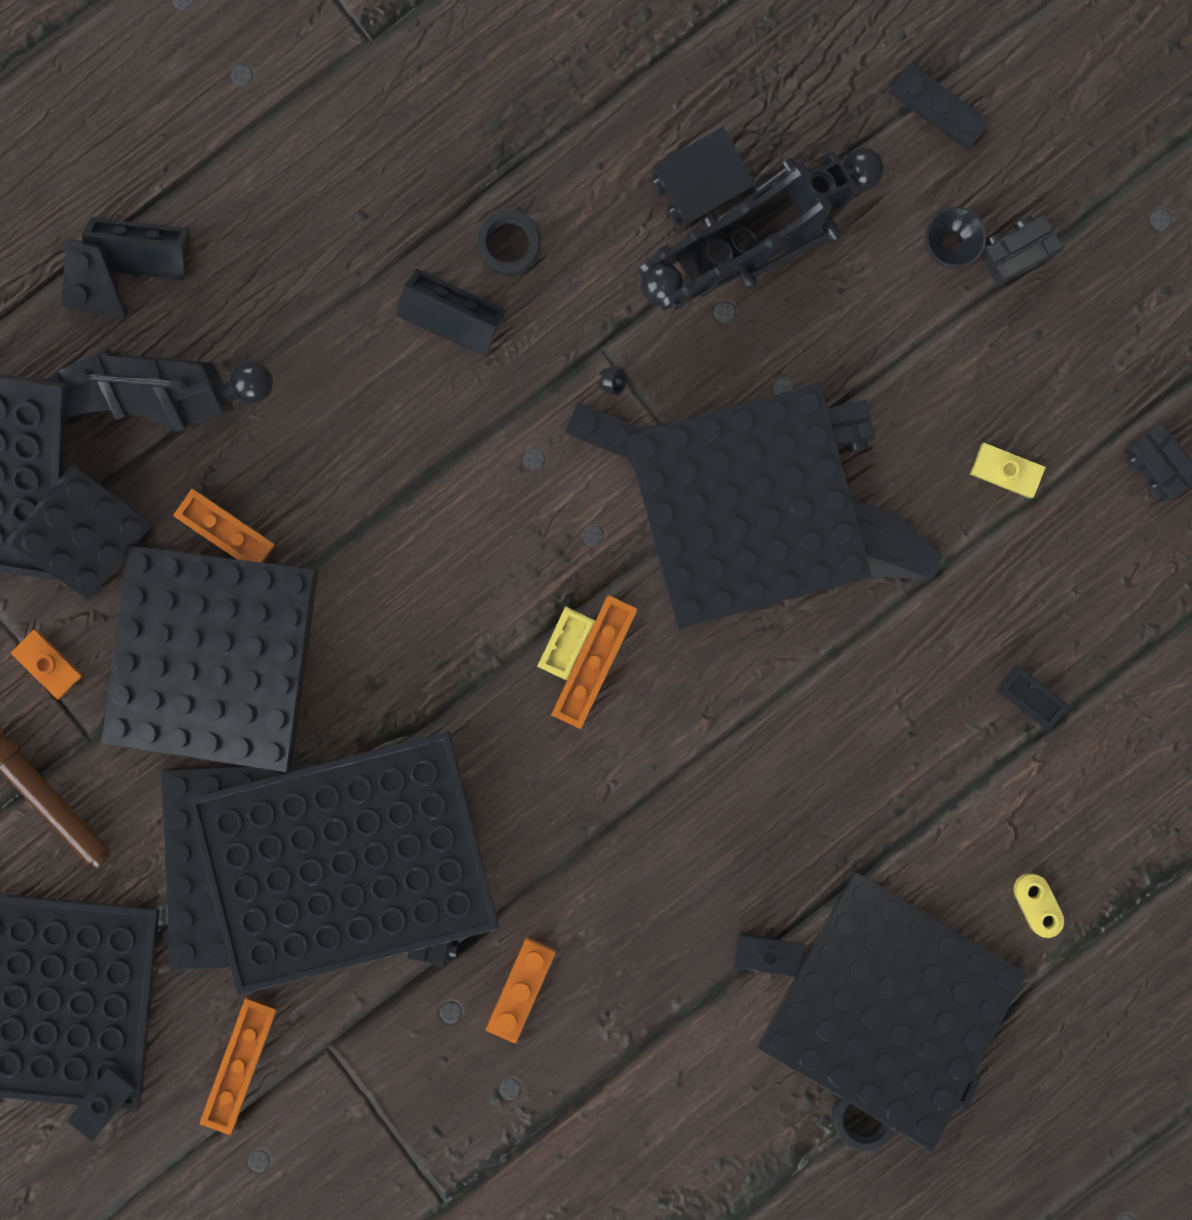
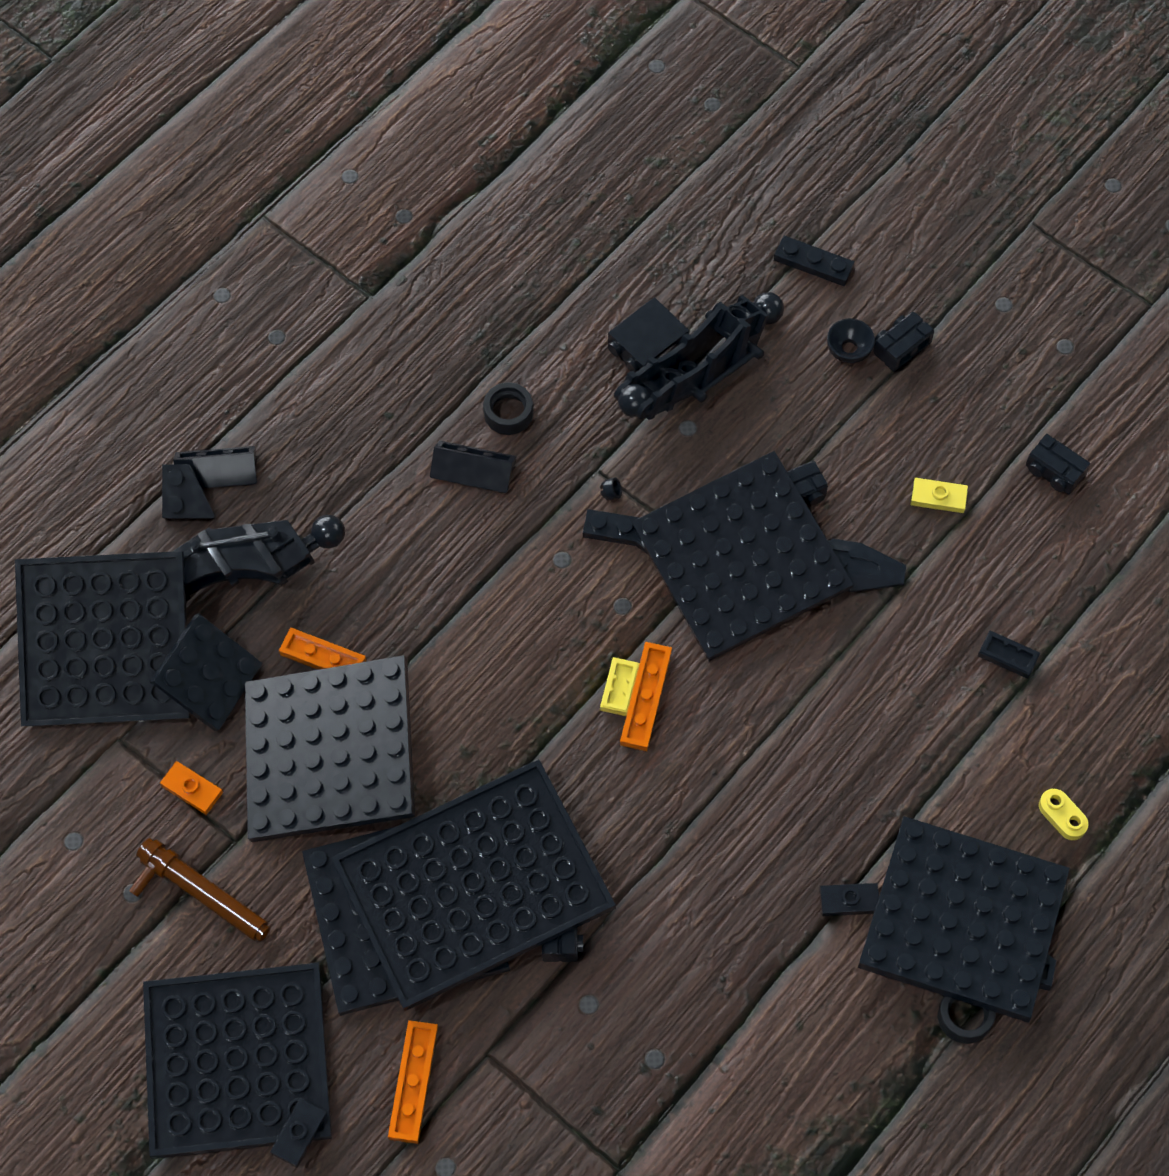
camera: 10 degrees left, 25 degrees down
(520, 990) = (645, 971): orange plate -> none

